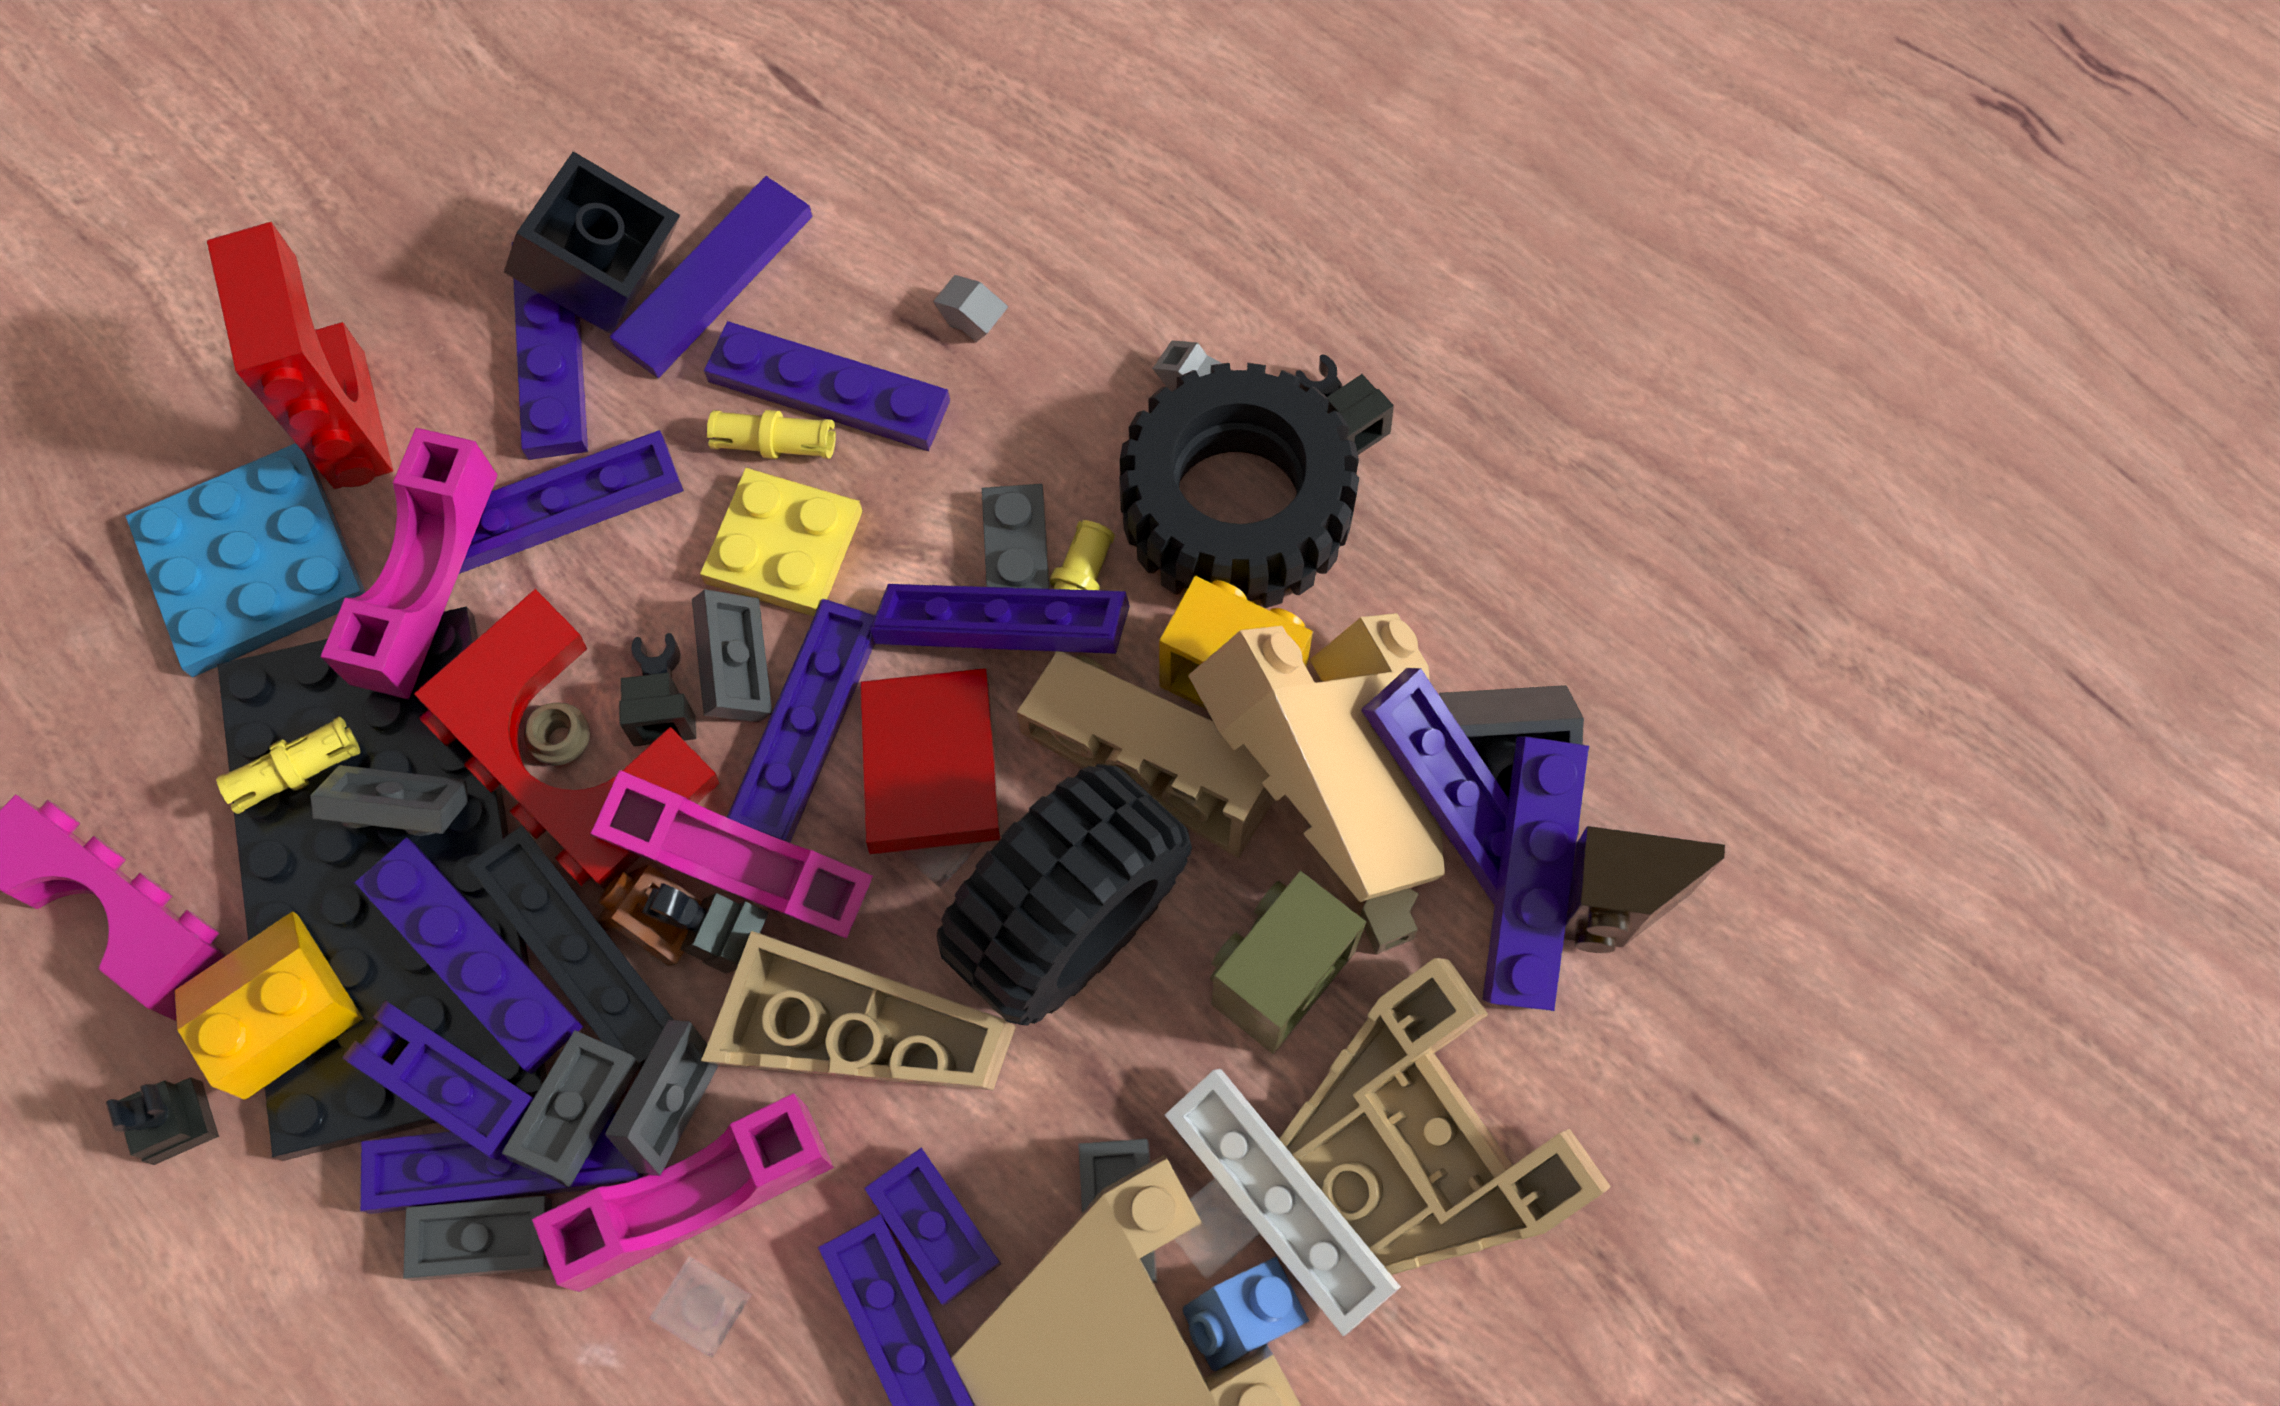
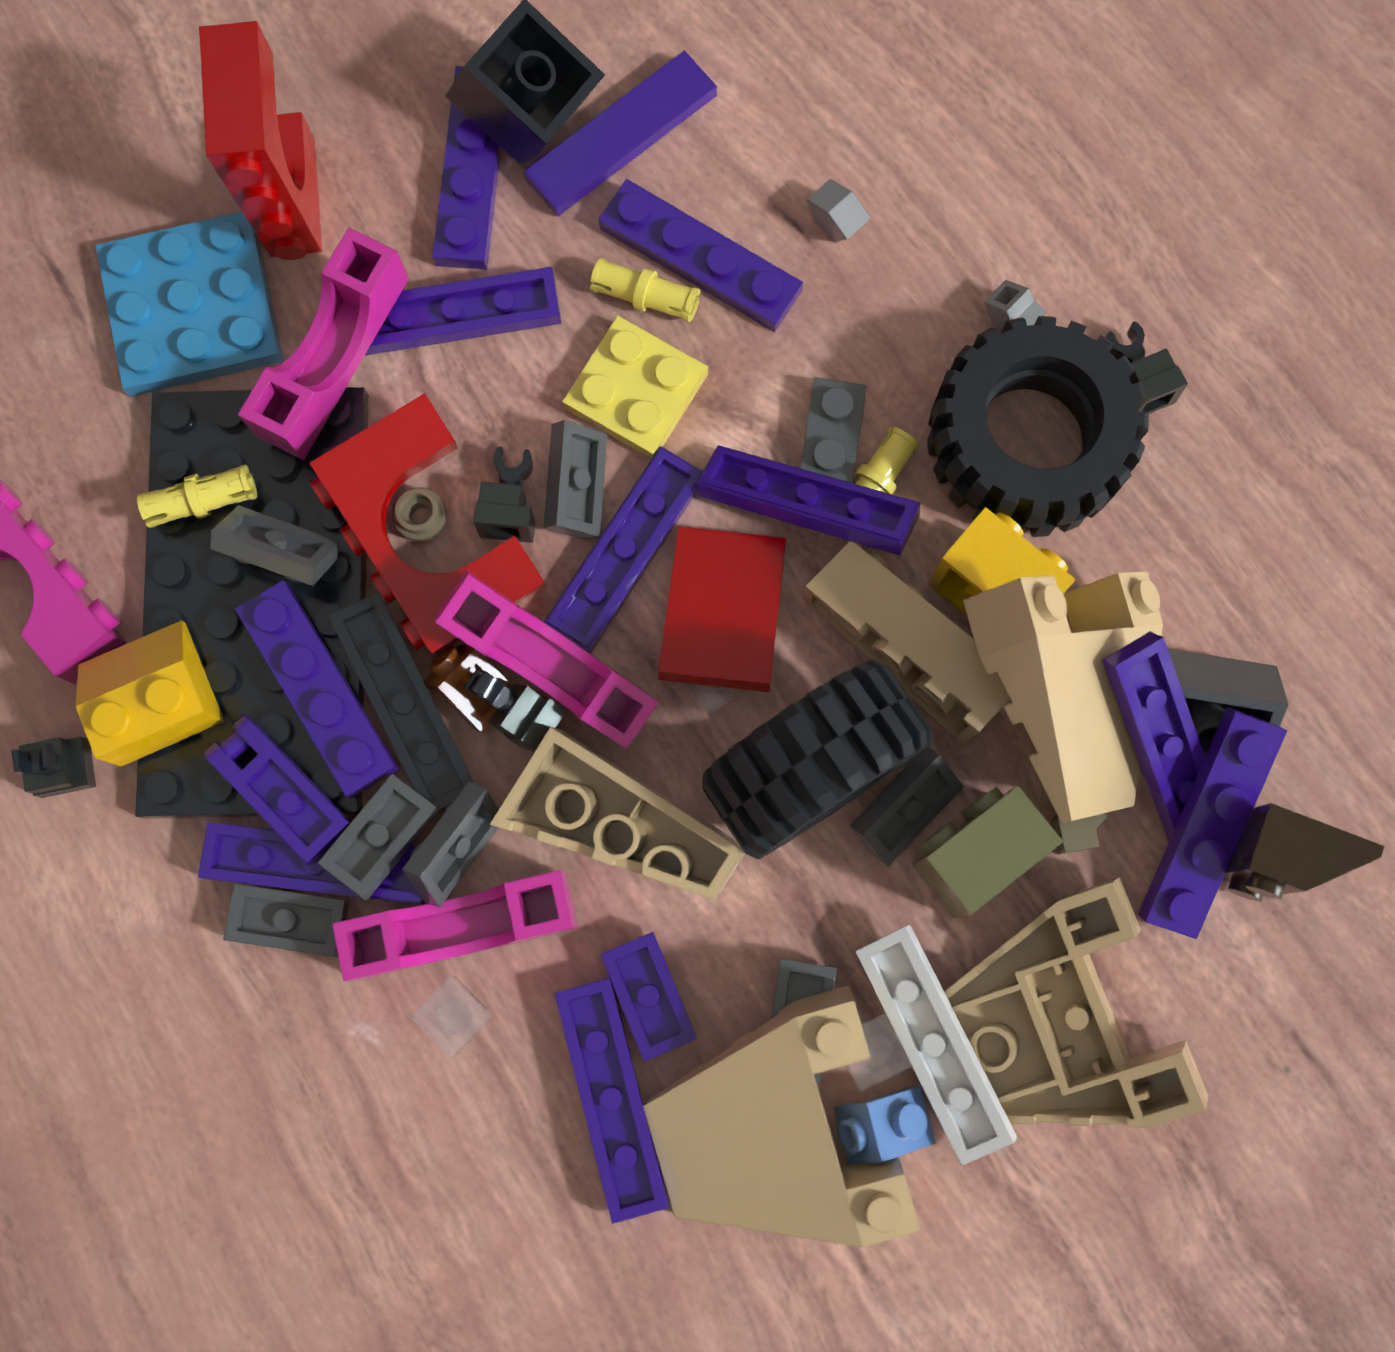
camera: 15 degrees right, 10 degrees up
(1188, 935) = (907, 806): none -> dark grey plate

